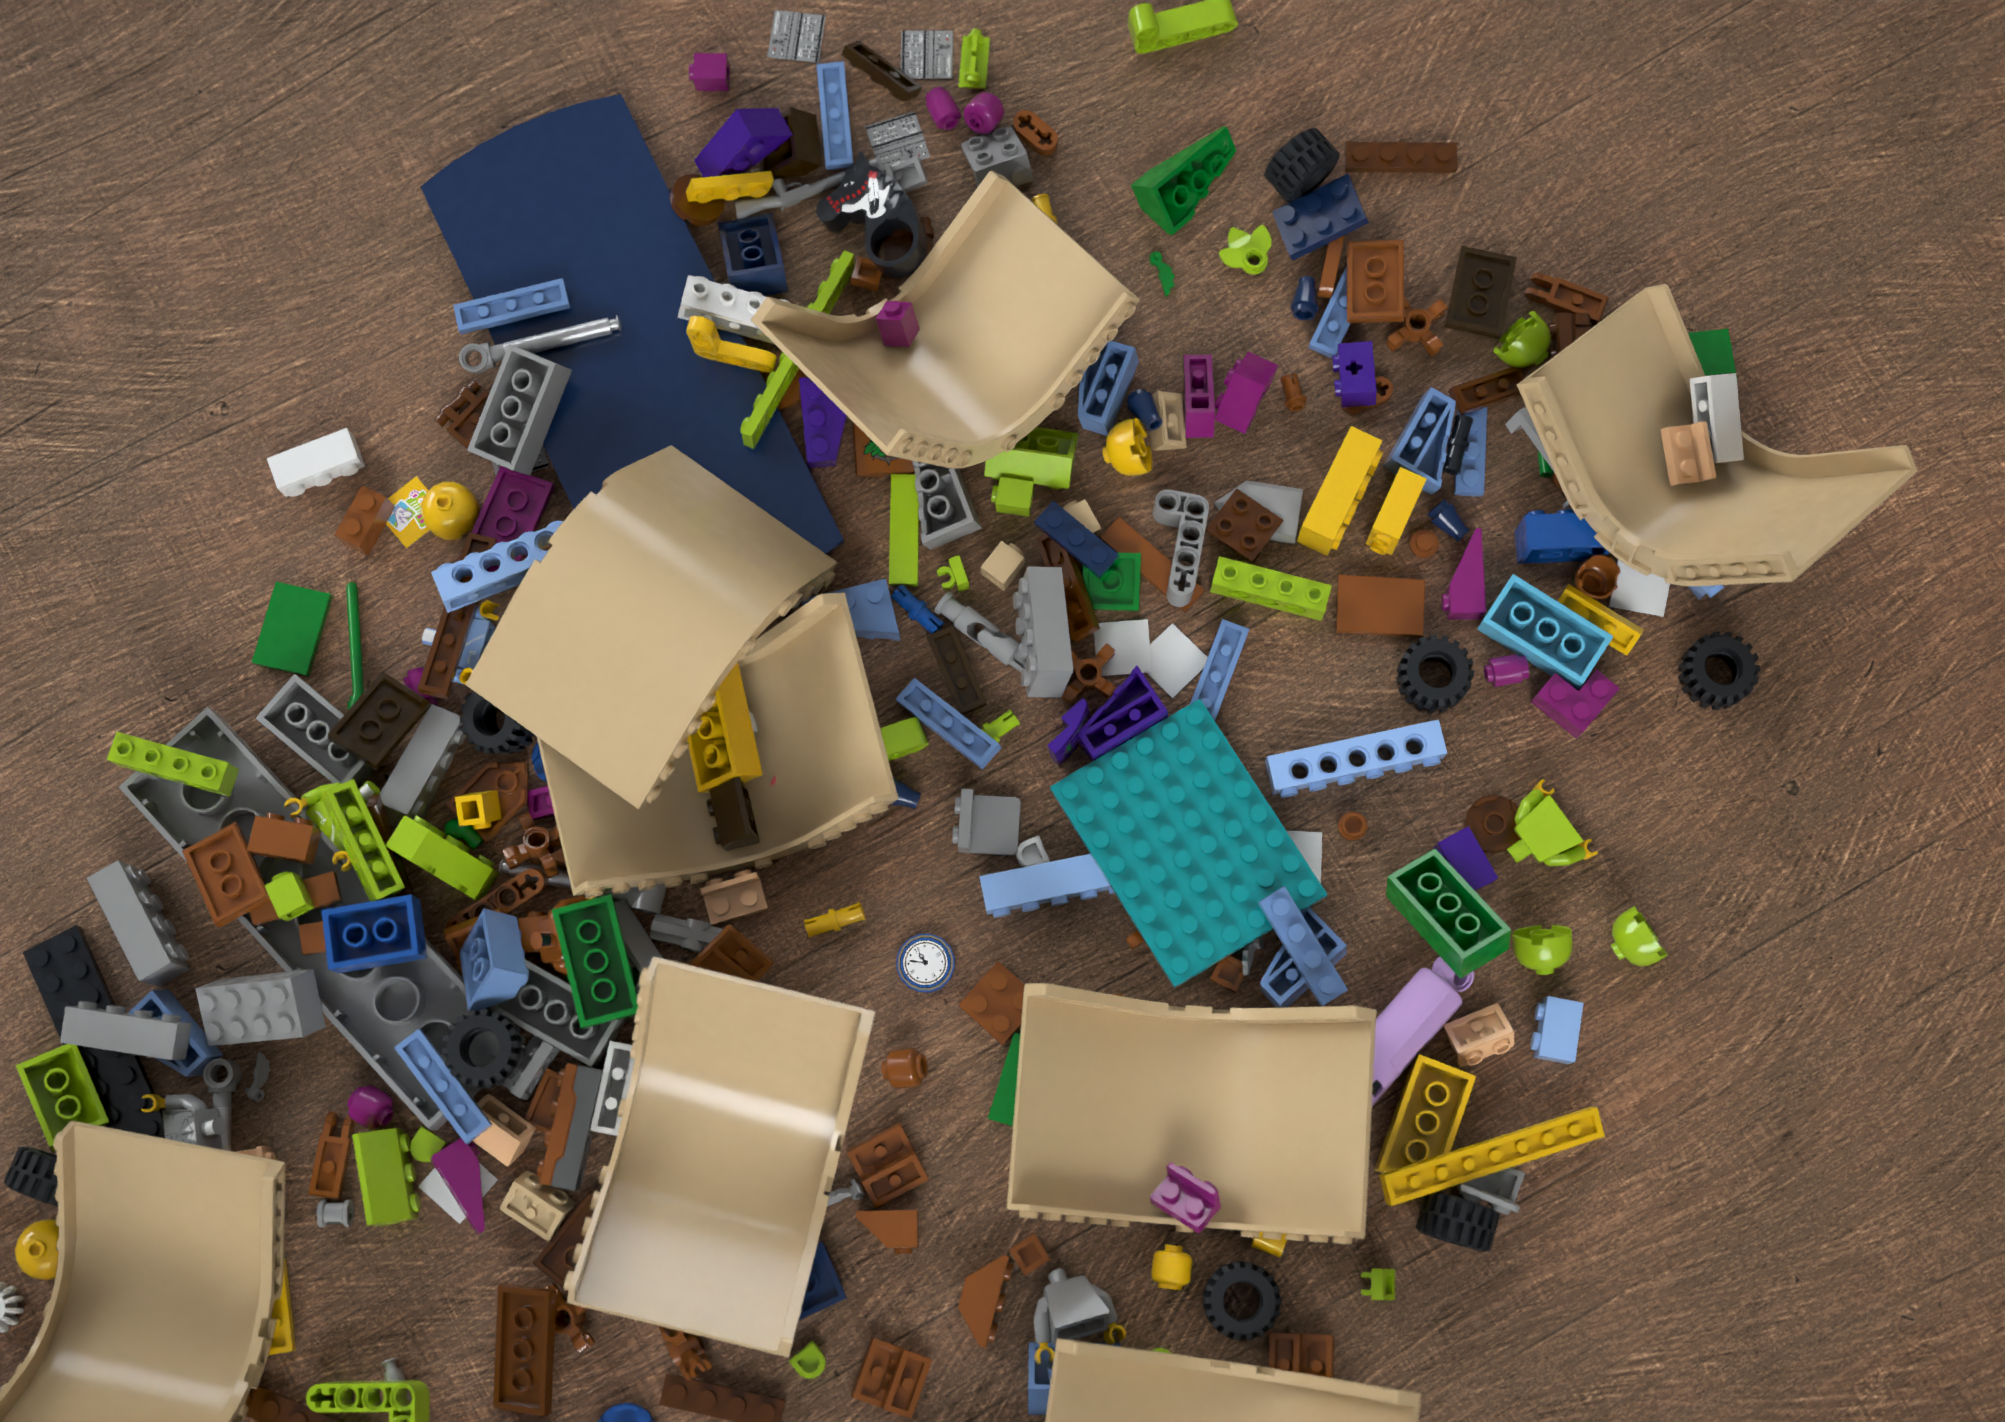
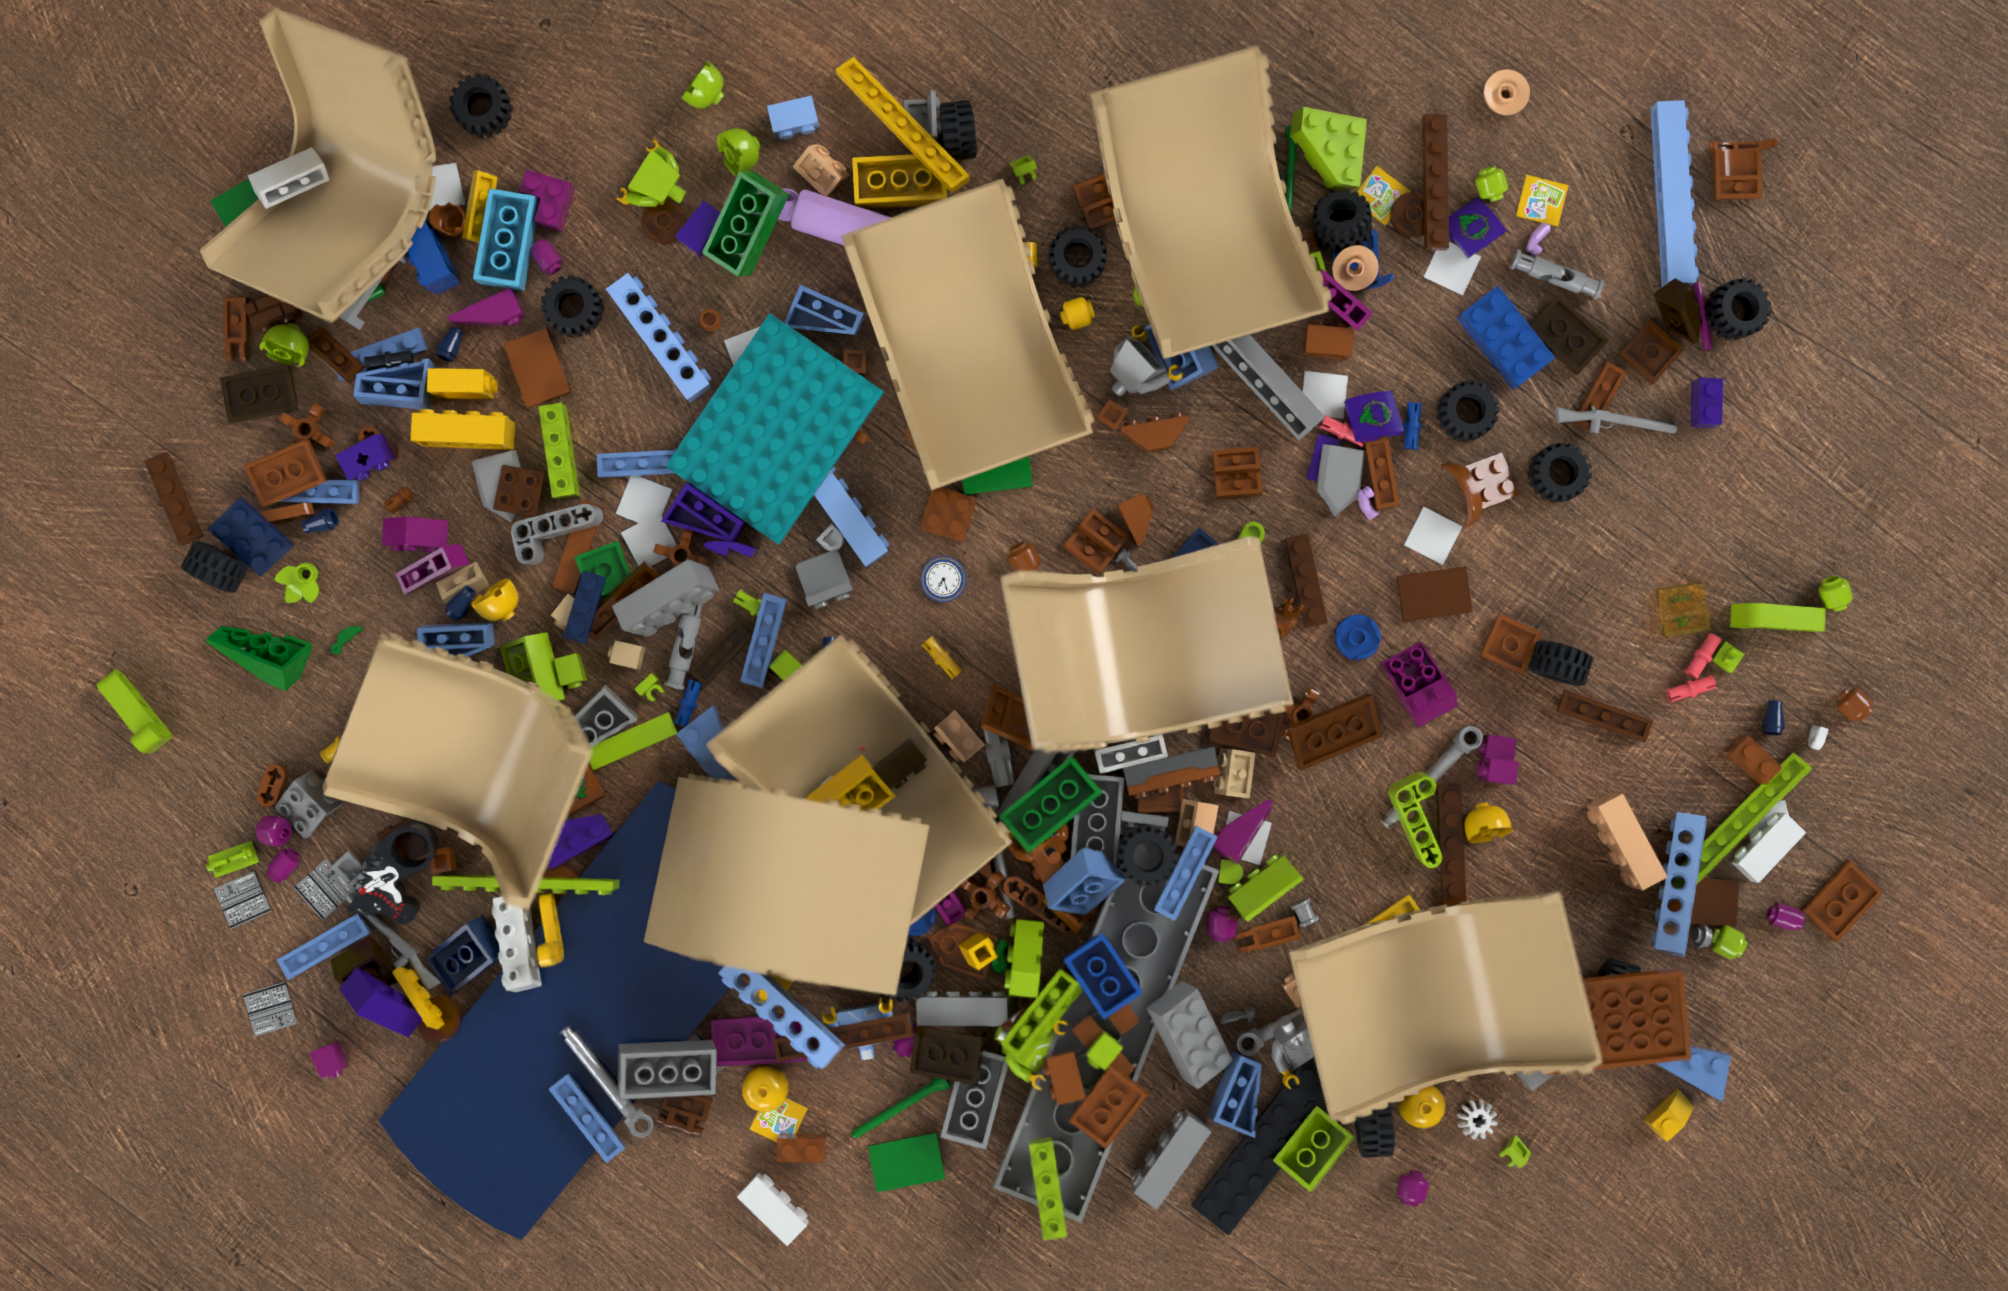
camera: 120 degrees left, 10 degrees up
(126, 1032) = (1251, 1123): light grey brick -> none
(881, 71) = (272, 927): dark brown plate -> none
(897, 324) = (474, 815): magenta brick -> none
(1186, 1198) = (1025, 321): magenta bracket -> none
(1248, 954) = (841, 351): light grey piece -> none
(1302, 946) = (814, 314): medium blue plate -> none
(1424, 543) = (475, 355): dark orange plate -> none
(1688, 453) = (325, 187): light nougat bracket -> none

